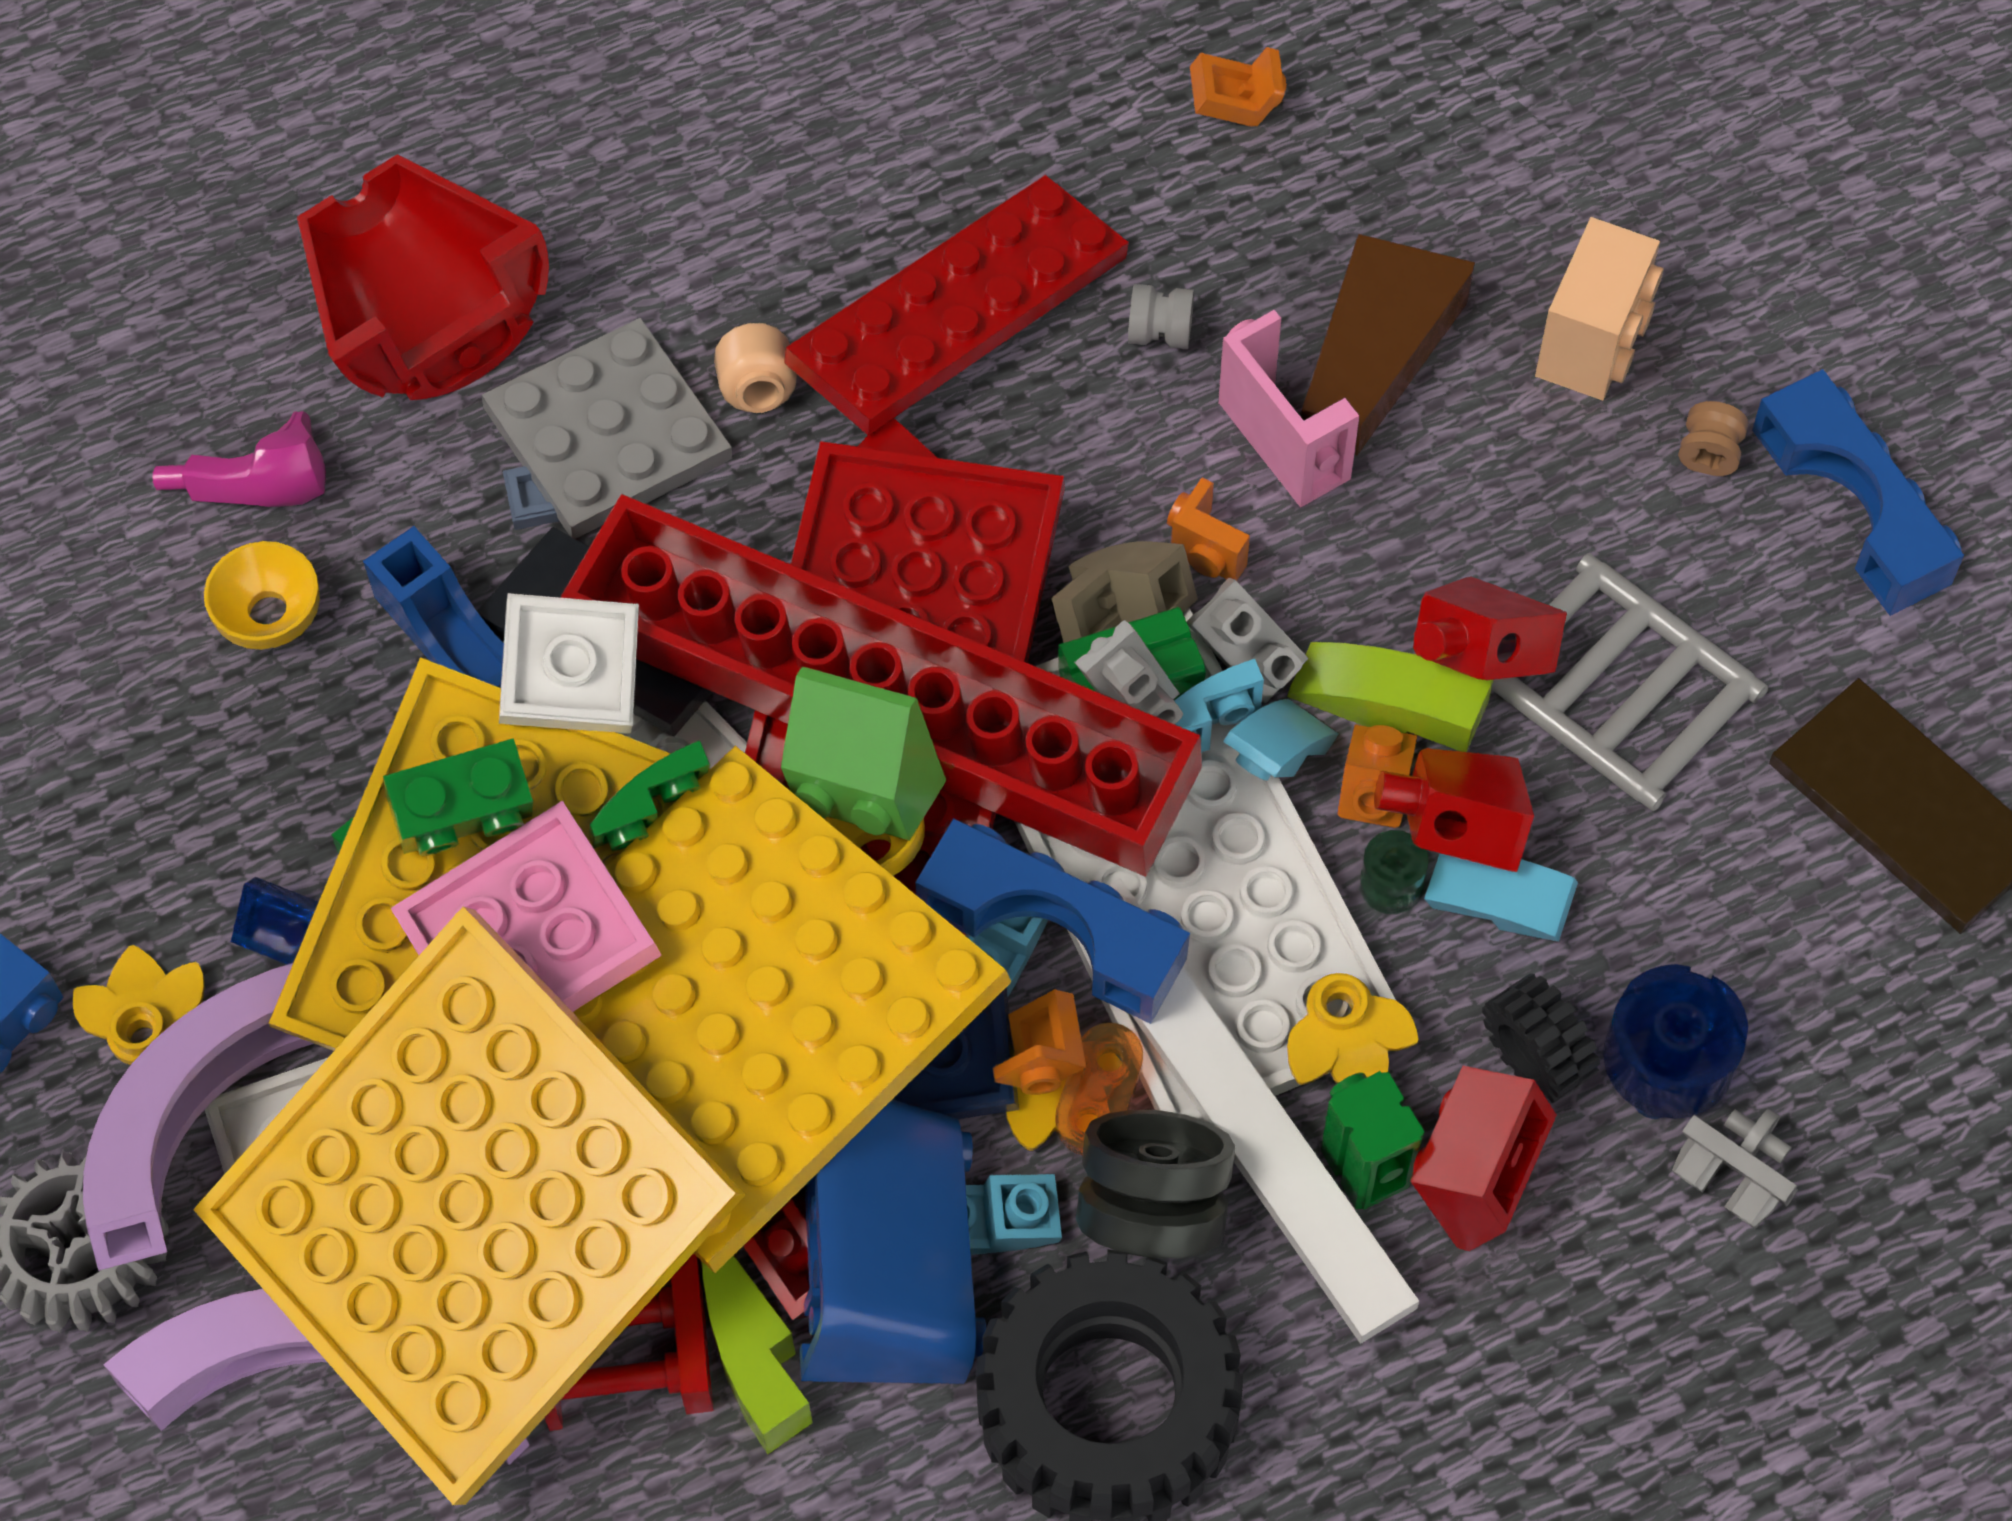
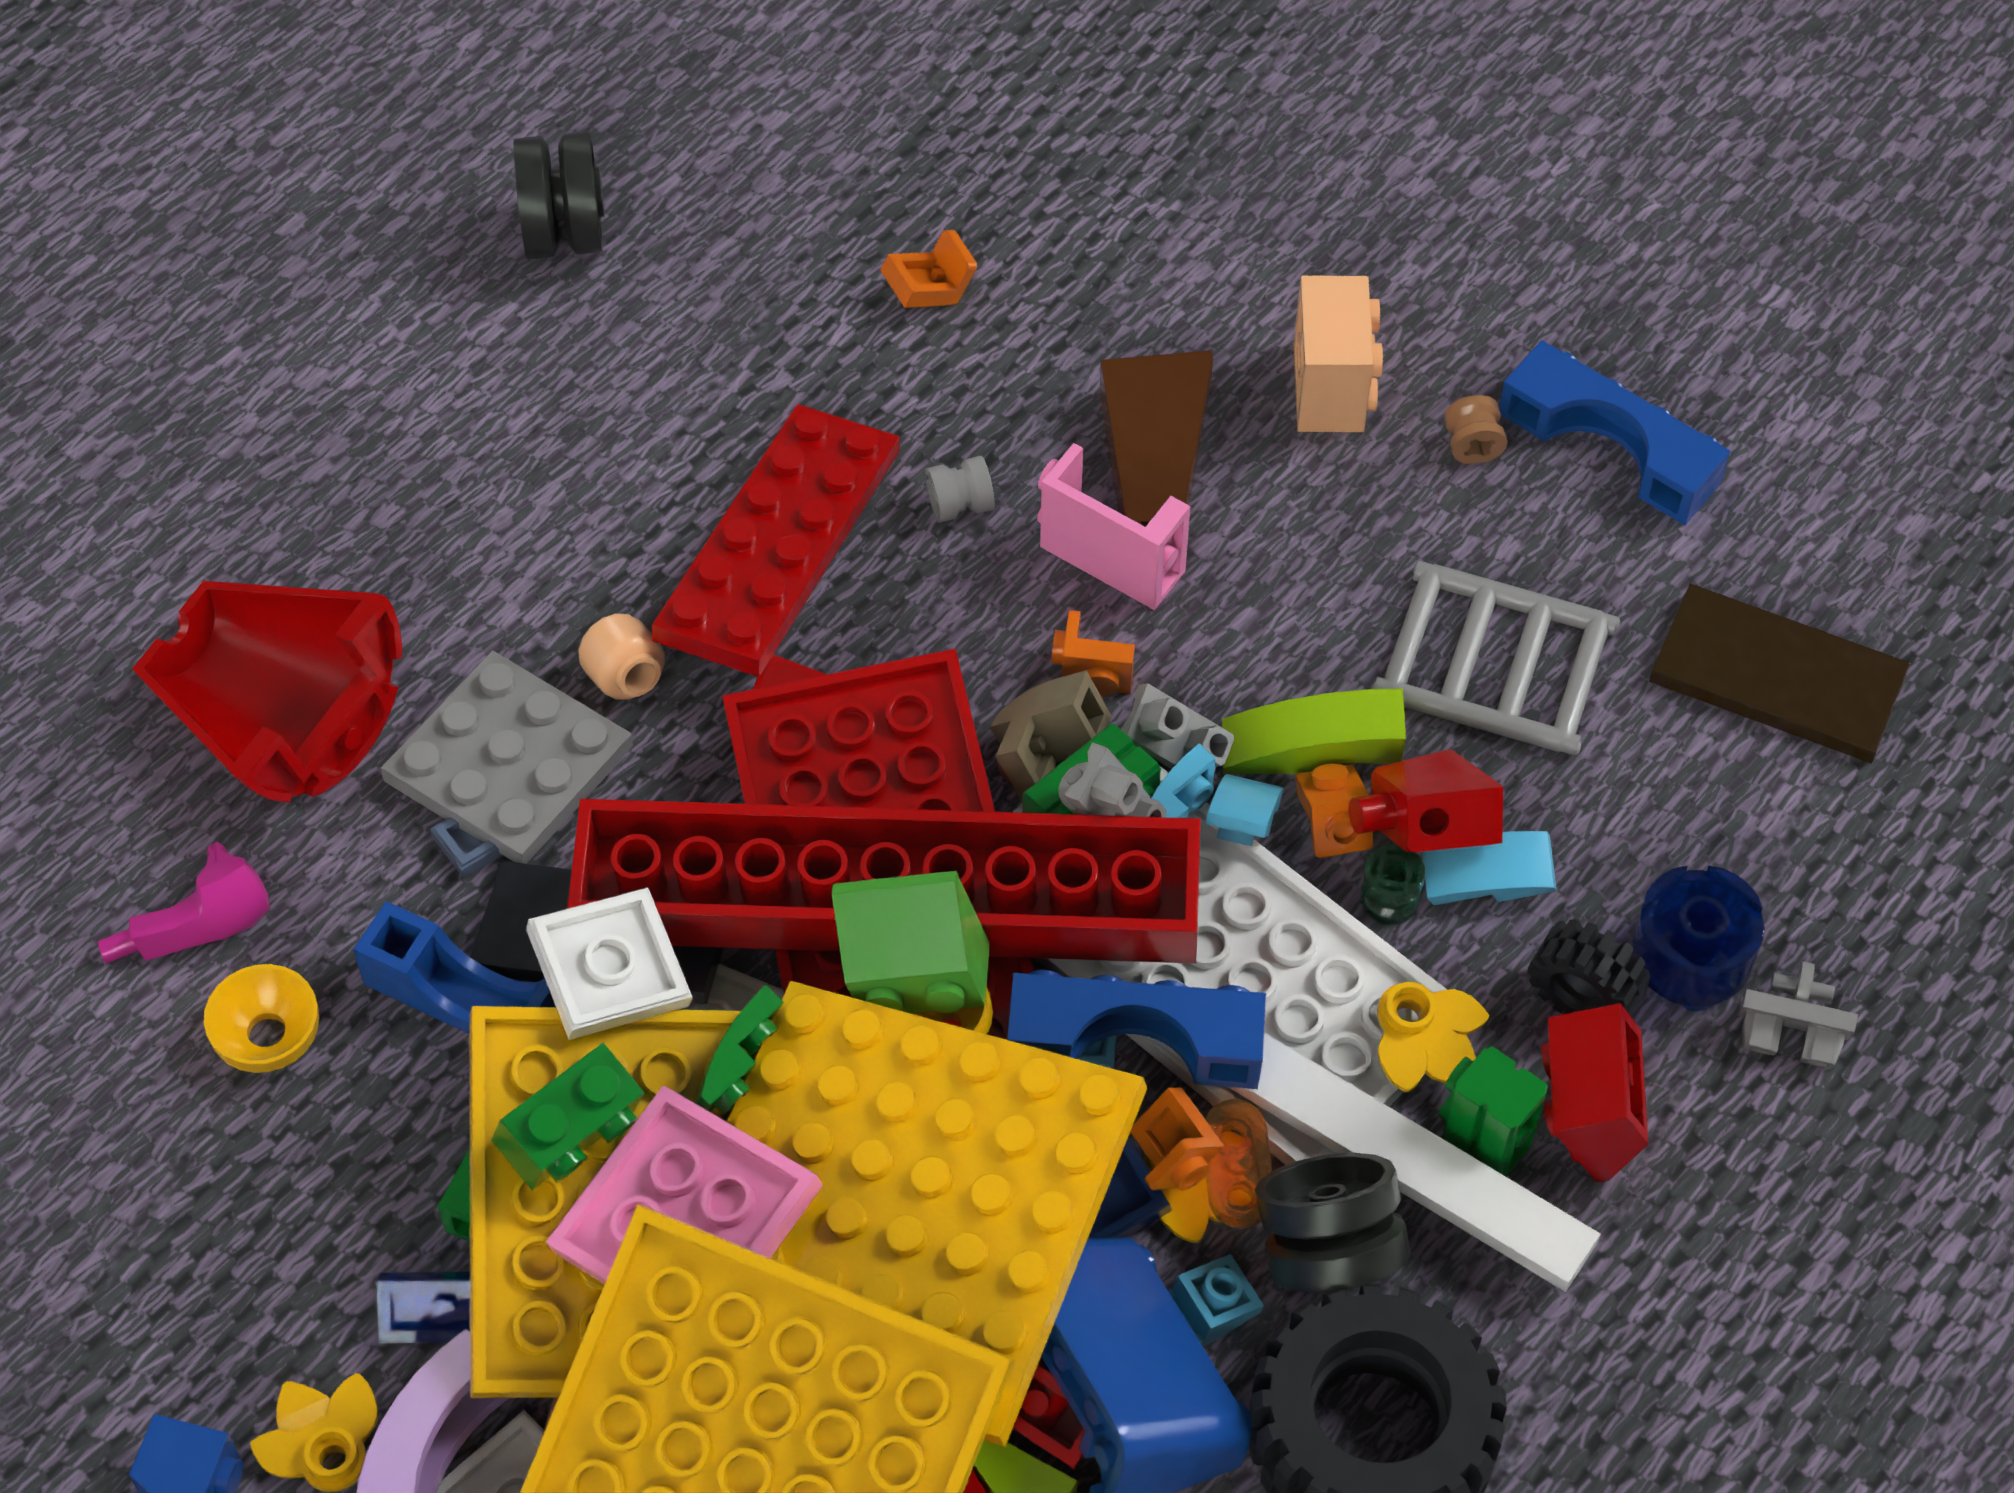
camera: 25 degrees left, 5 degrees down
(1466, 625) = (1367, 654): red torso -> none

